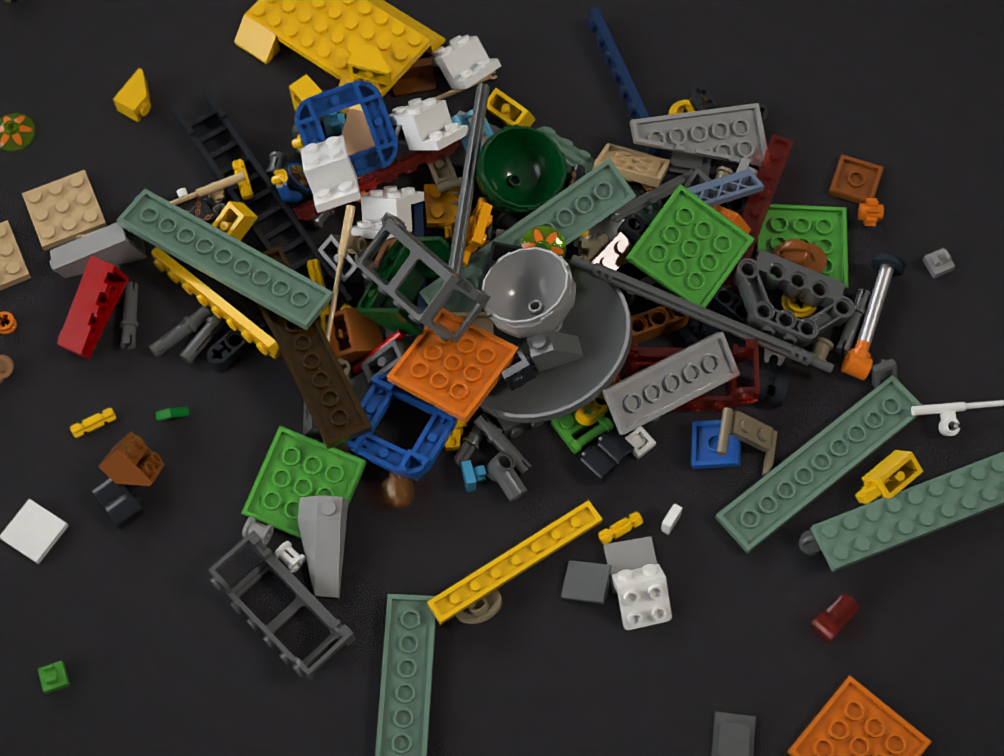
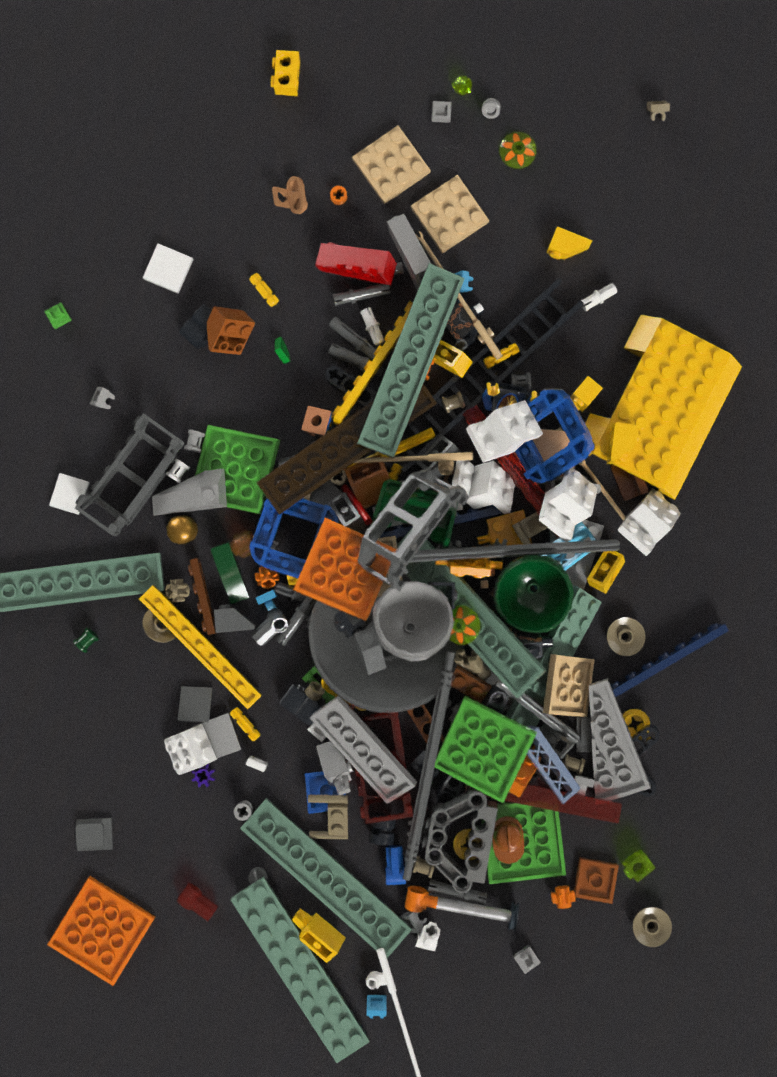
camera: 75 degrees right, 20 degrees up
(171, 309) = (372, 326): none -> white axle
(173, 636) = (100, 396): none -> light grey tile
(202, 75) = (599, 296): none -> white axle
(270, 386) = (312, 419): none -> nougat piece
(283, 235) = (453, 402): none -> dark tan bush
(287, 698) = (67, 492): none -> white piece
(364, 565) = (182, 529): none -> pearl gold hair
(430, 513) = (230, 573): none -> dark green slope
(439, 578) = (177, 590): none -> dark tan gear
(444, 471) = (266, 577): none -> orange gear
(444, 551) = (200, 588): none -> reddish brown plate
(480, 704) = (86, 640): none -> dark green bush
(489, 521) = (230, 619): none -> dark grey slope
(590, 100) = (635, 638): none -> dark tan dish
(593, 434) = (314, 691): none -> dark tan bush
(677, 577) = (208, 773): none -> dark purple gear
(686, 424) = (335, 767): none -> light grey hinge
(723, 537) = (237, 812): none -> light grey bush
(820, 383) = (395, 867): none -> blue piece
(845, 126) = (646, 866): none -> clear neon green brick
(903, 355) = (428, 937): none -> white piece
(916, 124) = (658, 933): none -> dark tan dish
(980, 428) = (376, 1005): none -> dark azure tile

